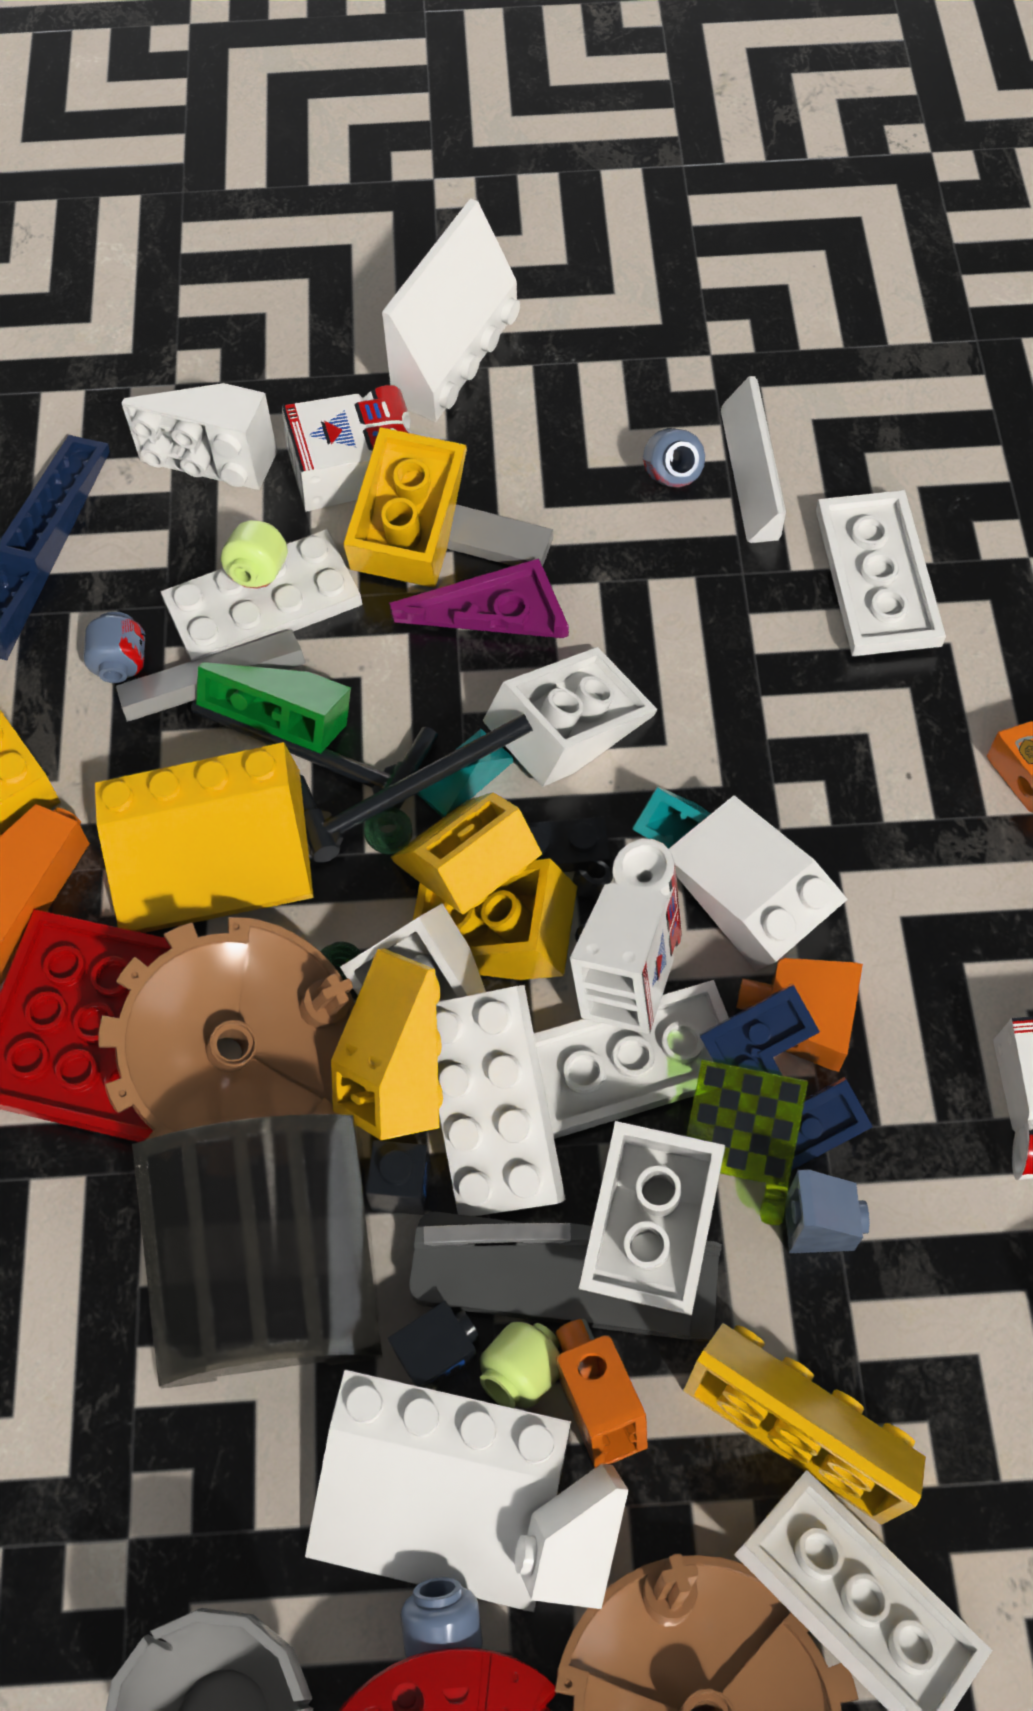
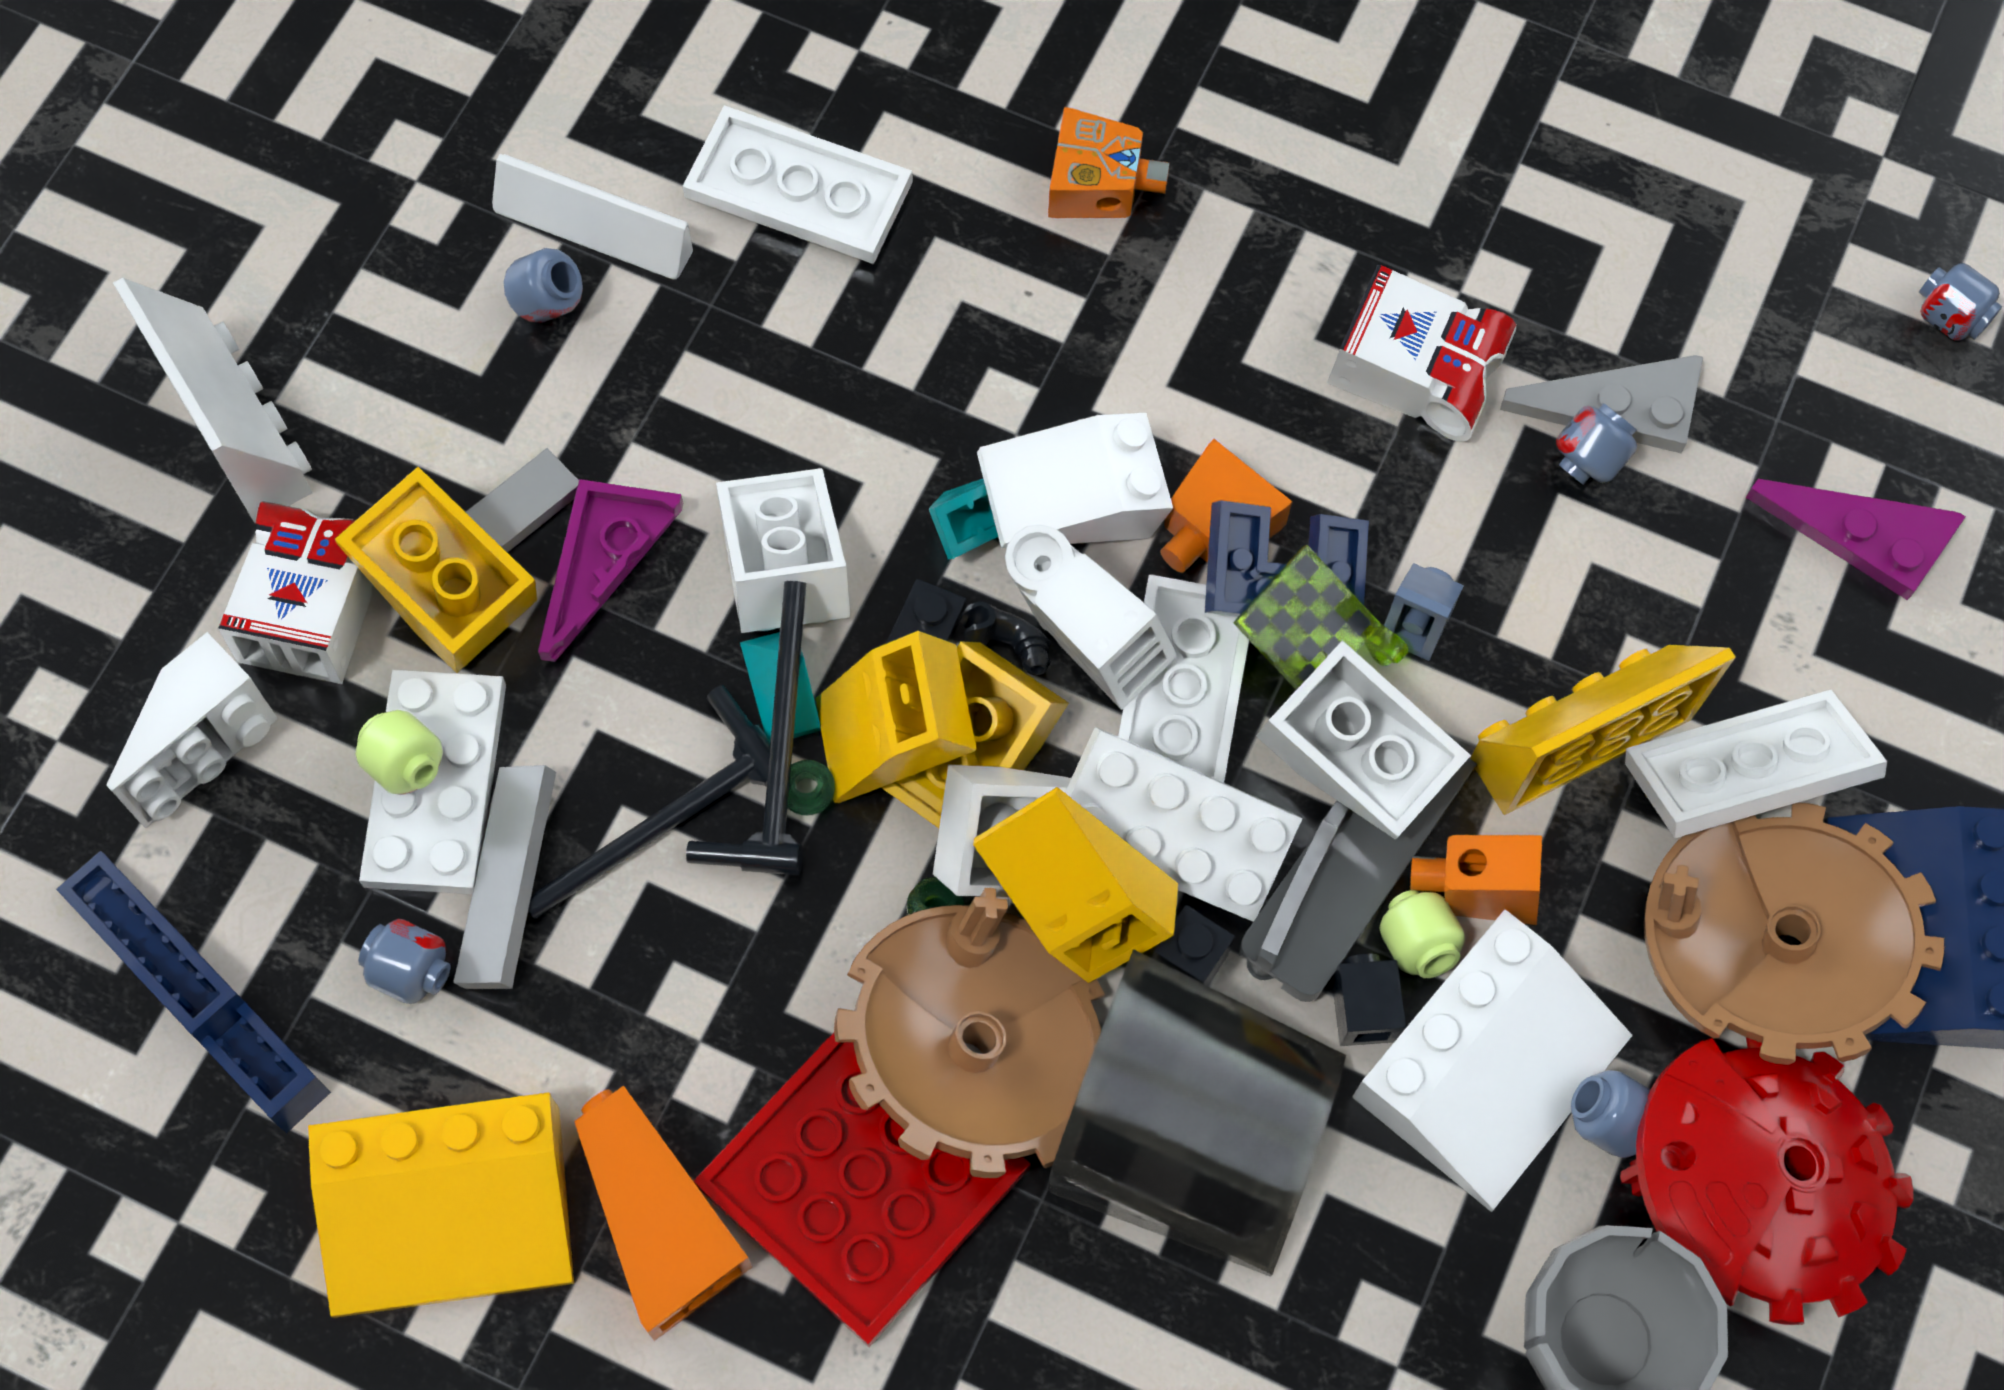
camera: 65 degrees left, 5 degrees up
(204, 839) = (719, 968): yellow slope -> none
(277, 701) = (594, 819): green slope -> none
(574, 1541) = (1605, 955): white slope -> none

